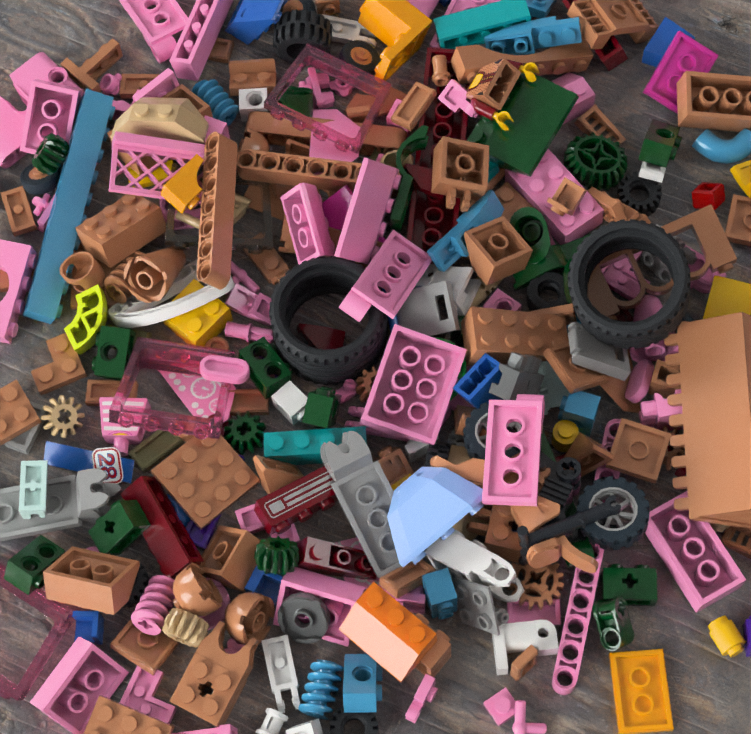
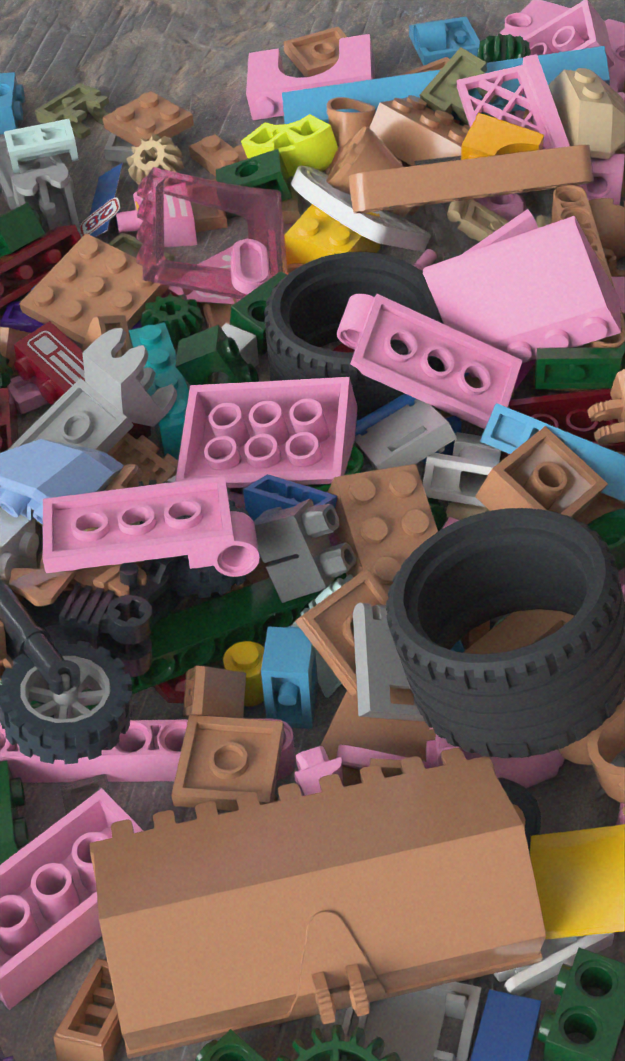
camera: 75 degrees right, 20 degrees down
(79, 192) = (443, 91): none -> olive plate

